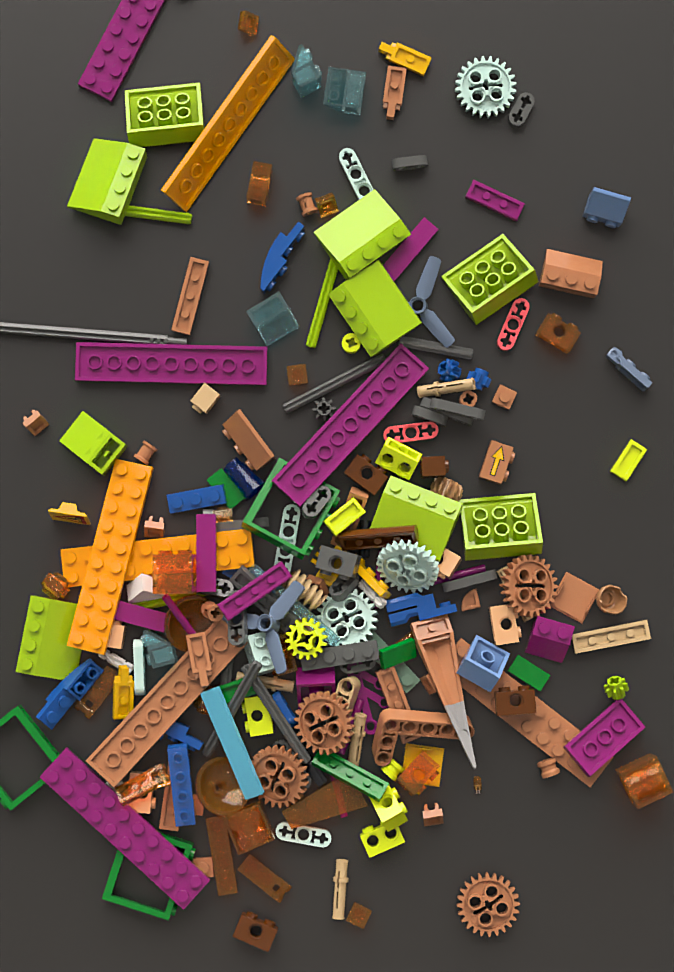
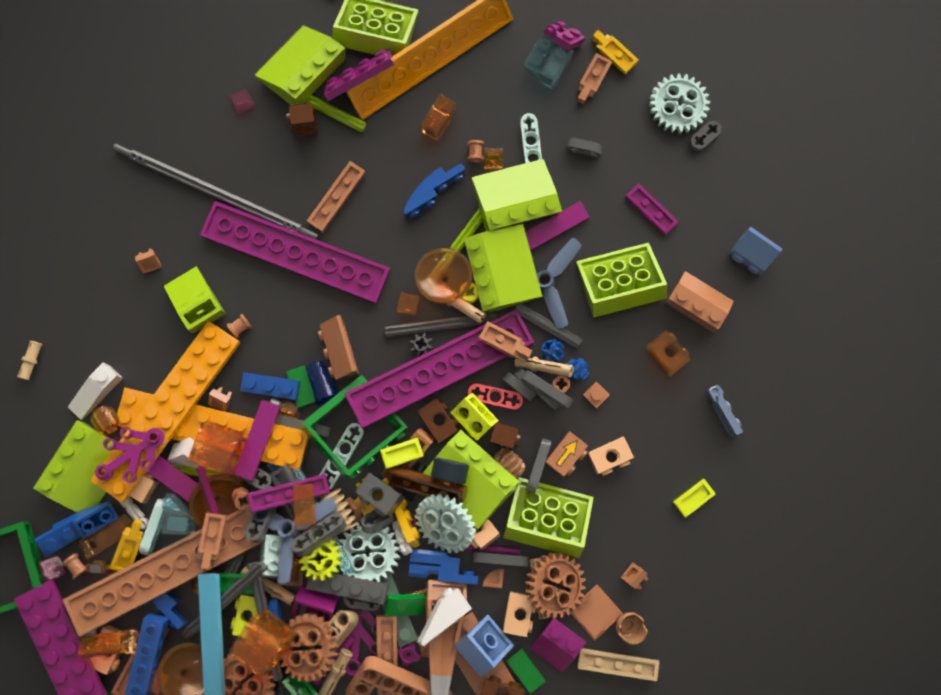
camera: 20 degrees right, 5 degrees down
(33, 563) = (94, 390): none -> white slope
(60, 739) = (51, 568): none -> clear pink plate
(63, 234) = (242, 101): none -> clear pink plate
(68, 513) = (143, 355): yellow piece -> none
(80, 728) = (74, 566): none -> nougat bush
(97, 605) = (132, 452): none -> magenta plant
(102, 721) = (98, 566): none -> clear orange plate
(131, 234) = (302, 120): none -> reddish brown brick
(169, 170) = (361, 73): none -> magenta plate
(204, 399) = (313, 295): tan brick -> none
(272, 319) = (403, 243): clear light blue slope -> none
(273, 595) = (304, 505): none -> clear orange plate
(284, 731) = (263, 642): none -> clear orange brick
(289, 619) = (304, 538): none -> dark grey beam
(304, 74) = (516, 32): clear light blue slope -> none
(319, 504) = (381, 433): beam -> none
(321, 323) = (441, 264): none -> clear orange dish
(345, 357) = (468, 309): none -> tan pin
(352, 62) = (565, 38): none -> magenta plate
(395, 516) = (449, 470): none -> black wheel
(401, 378) = (504, 341): none -> nougat hinge
(417, 702) = (406, 660): none -> magenta plate
(437, 647) = (446, 611): none -> white slope
(474, 482) = (538, 465): none -> dark grey beam
(523, 313) = (633, 316): coral beam -> none
(543, 439) = (619, 448): none -> light nougat brick
(597, 551) = (634, 576): none -> nougat tile

